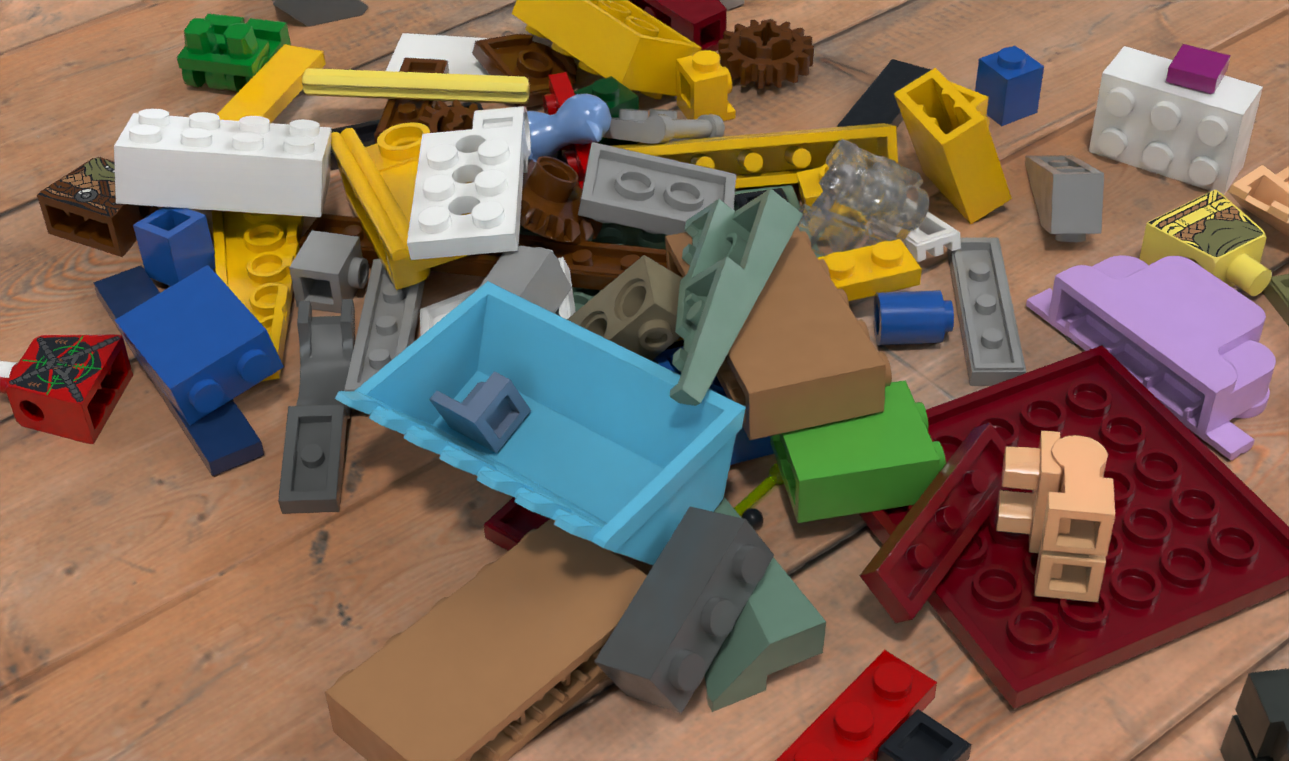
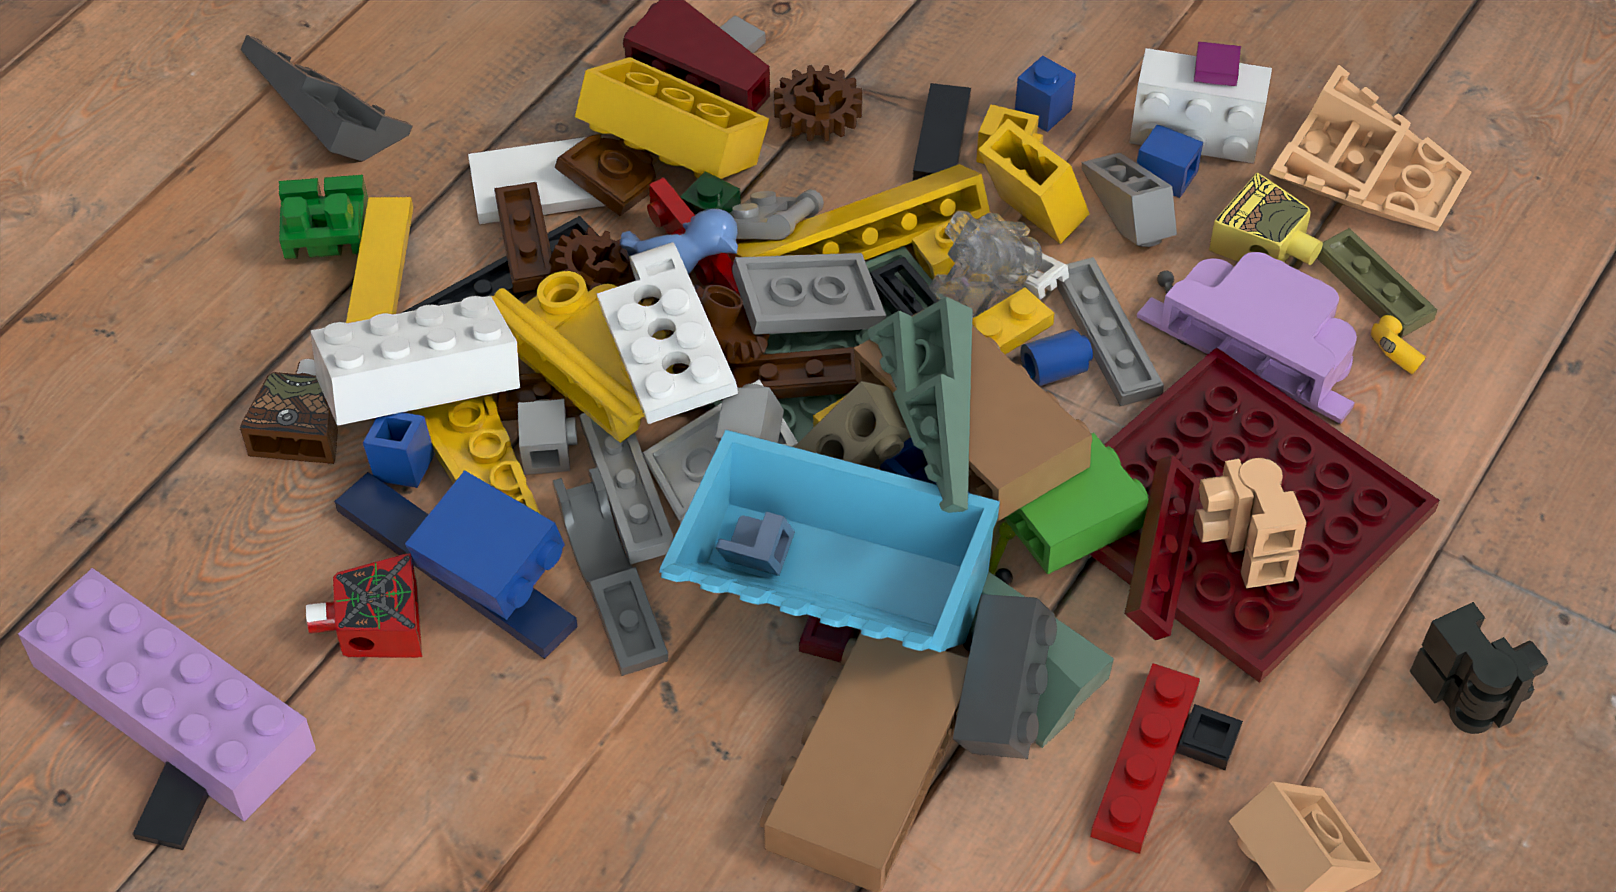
camera: 20 degrees left, 10 degrees up
(416, 86) = (528, 222): light yellow axle -> none
(704, 86) = (785, 151): yellow brick -> none
(1128, 166) = (1171, 157): none -> blue panel

